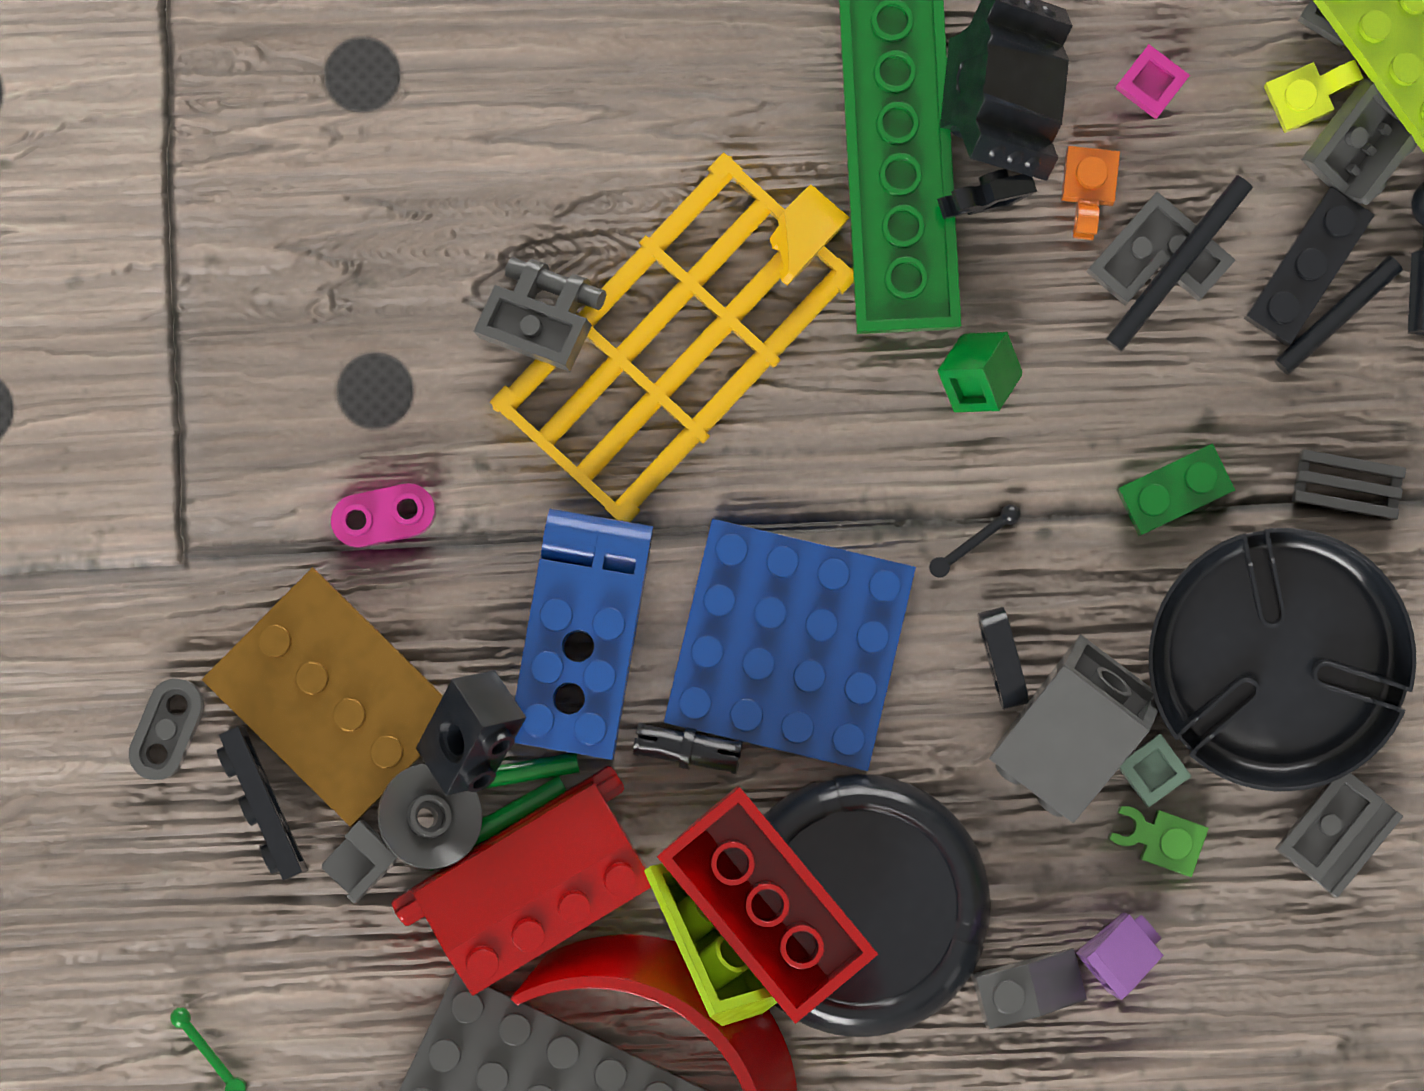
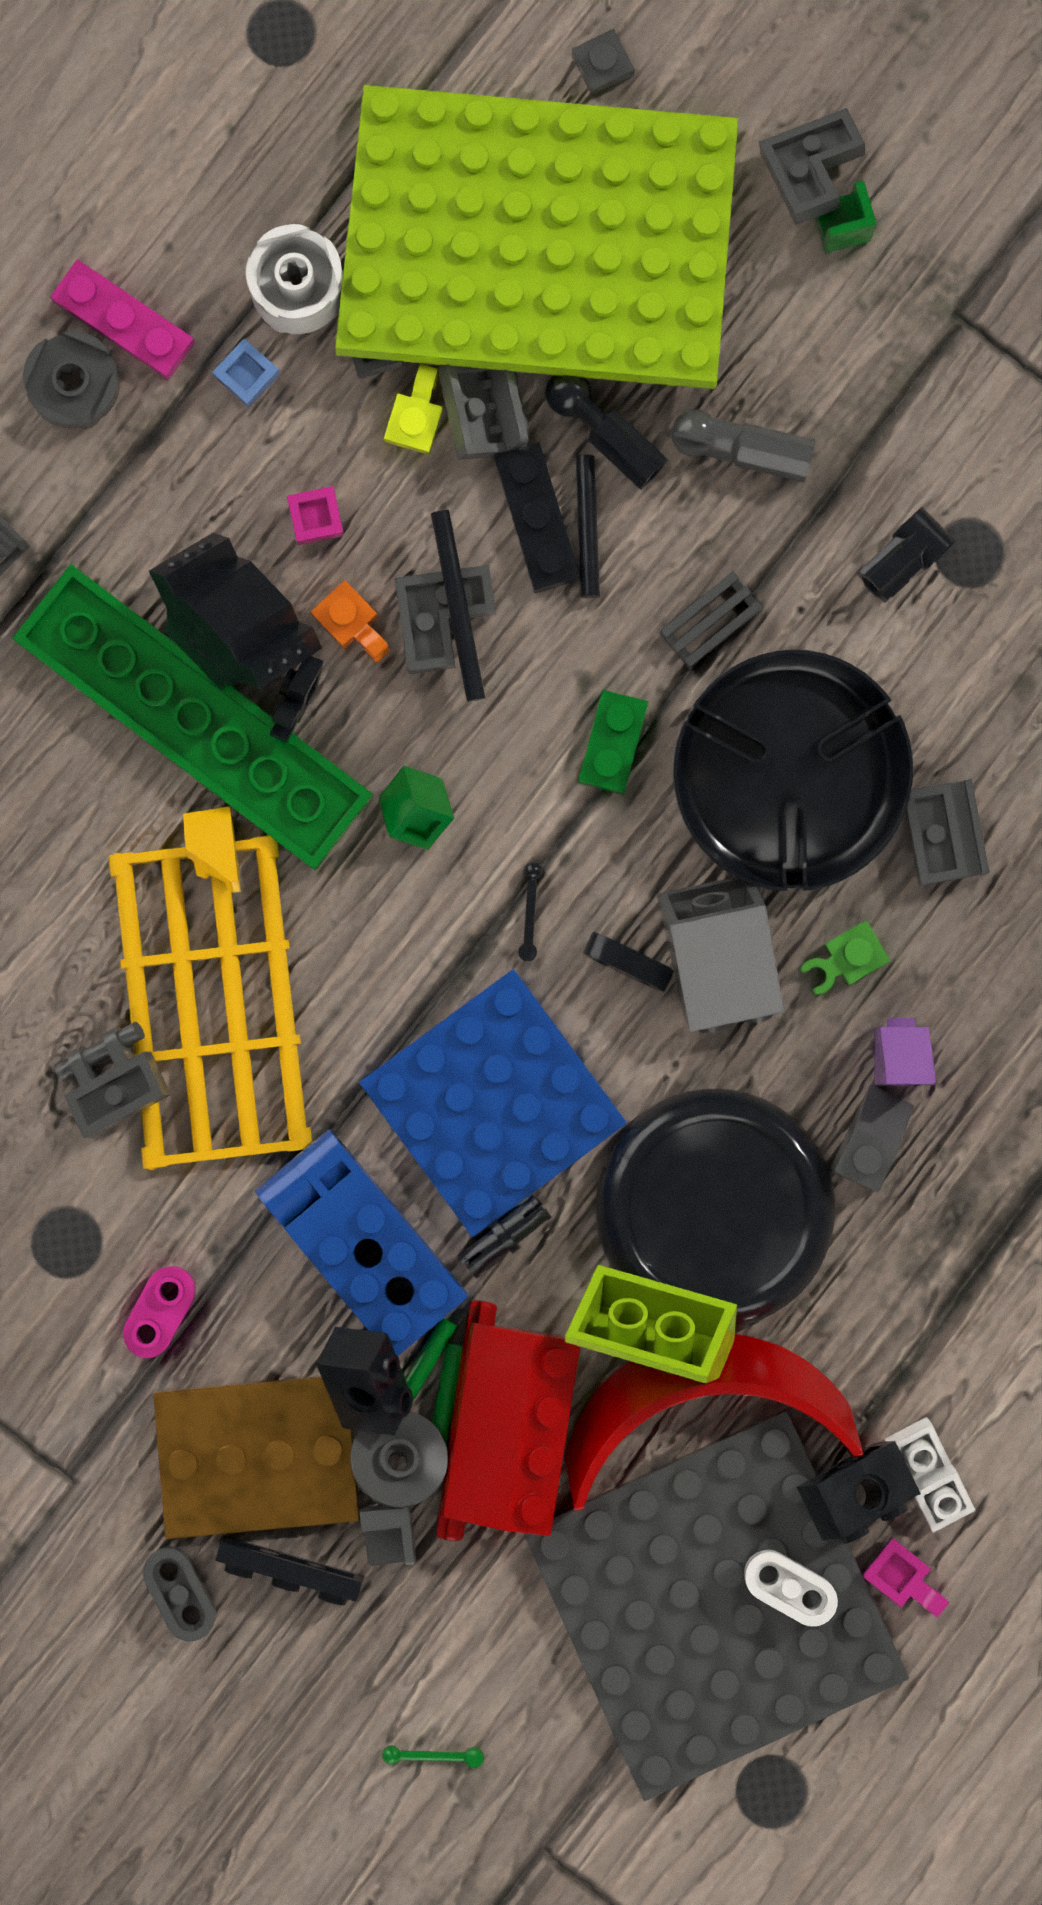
camera: 50 degrees left, 0 degrees up
(767, 904) = (661, 1275): red slope -> none
(1154, 770) = (795, 923): sand green plate -> none

